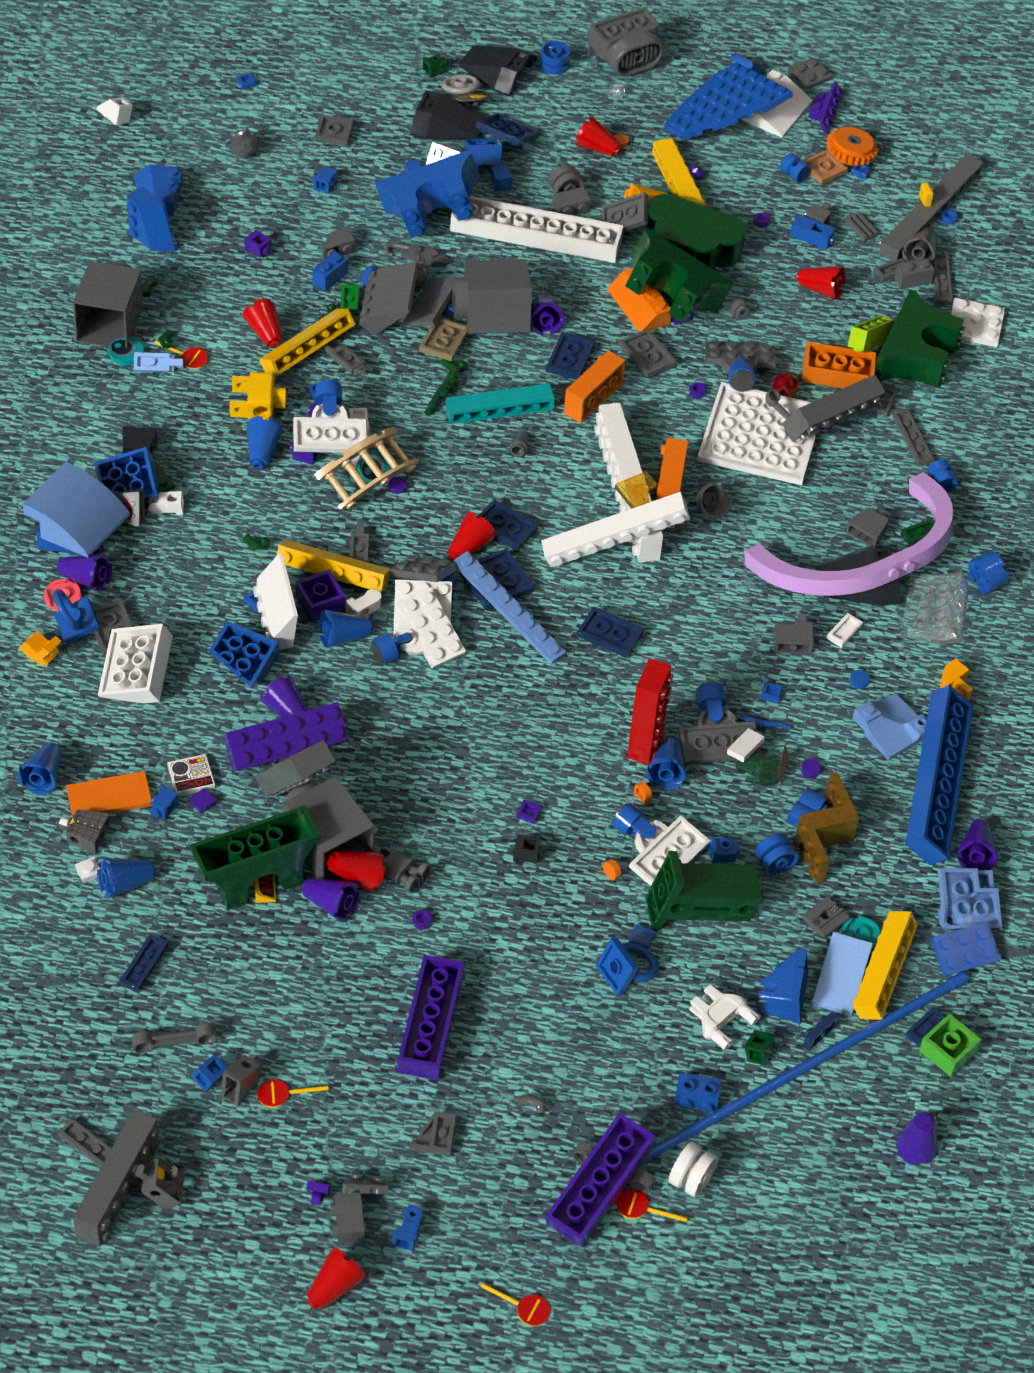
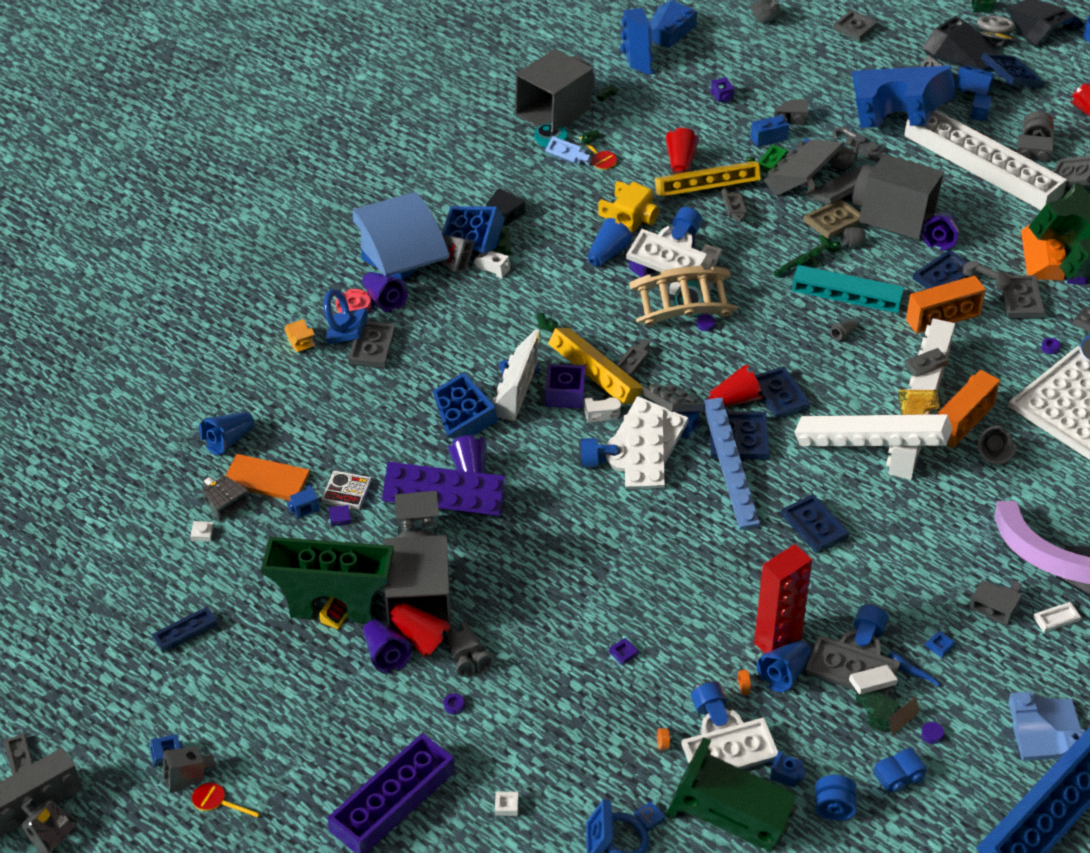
camera: 35 degrees right, 5 degrees down
(123, 874) = (223, 546): blue cone -> none
(136, 663) = (367, 379): white slope -> none
(145, 1041) = (133, 697): dark grey piece -> none
(325, 180) = (818, 60): blue brick -> none
(342, 627) = (567, 420): blue cone -> none
(472, 351) = (853, 237): none -> dark grey piece
(525, 980) = (506, 804): none -> white plate
(527, 849) = (594, 683): pearl dark grey brick -> none
(621, 448) = (926, 362): none -> dark grey plate
(626, 344) = (1002, 279): none -> dark grey bar
(826, 828) = (903, 795): pearl gold bracket -> none
(859, 679) = (1042, 669): blue tile -> none

